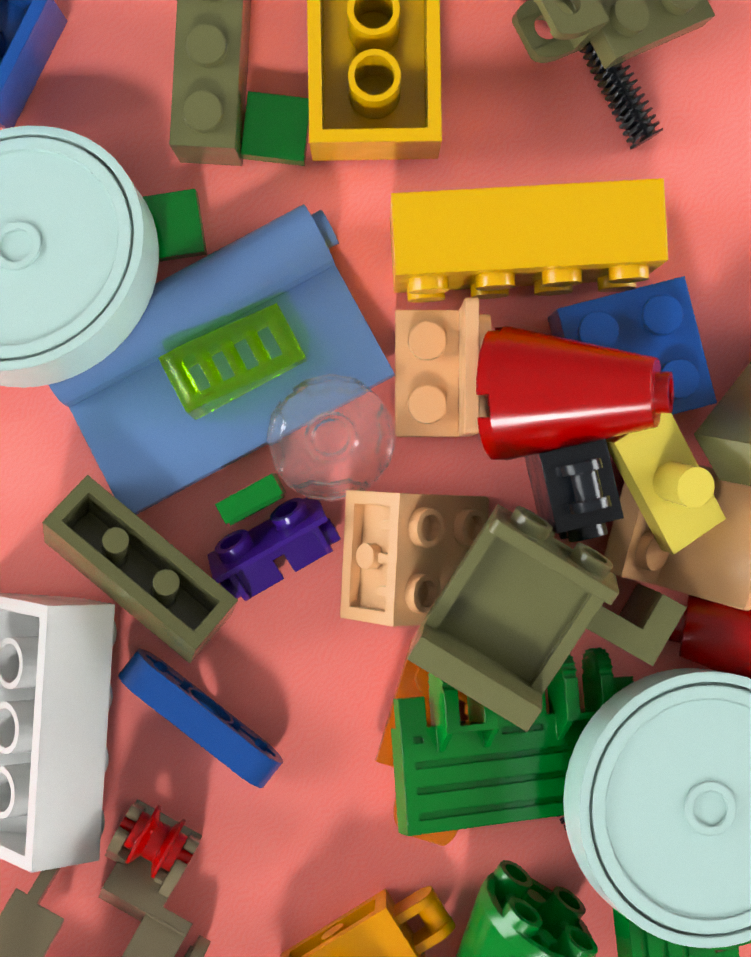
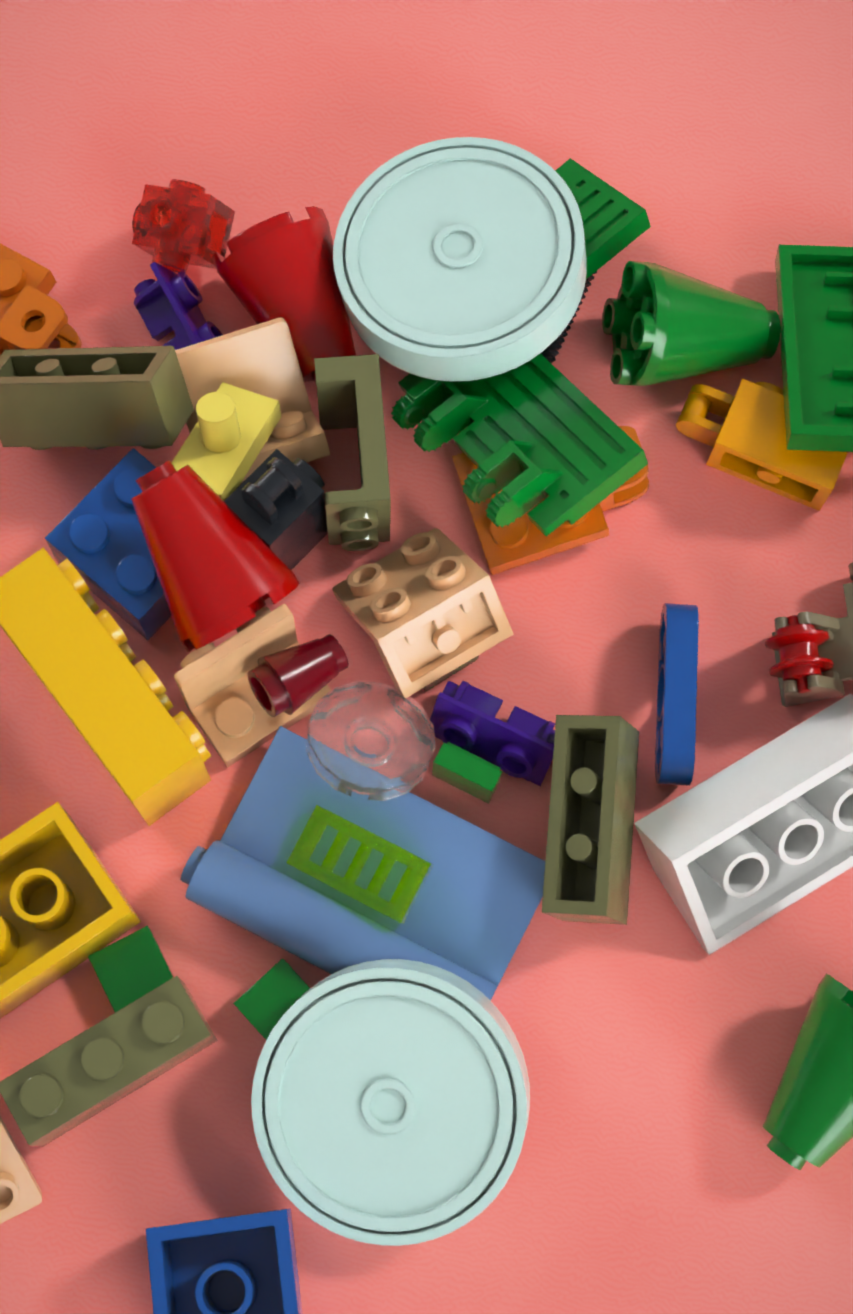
camera: 125 degrees left, 15 degrees down
(422, 411) = (296, 674): none -> dark red cone
(512, 614) = (411, 480): olive panel -> none

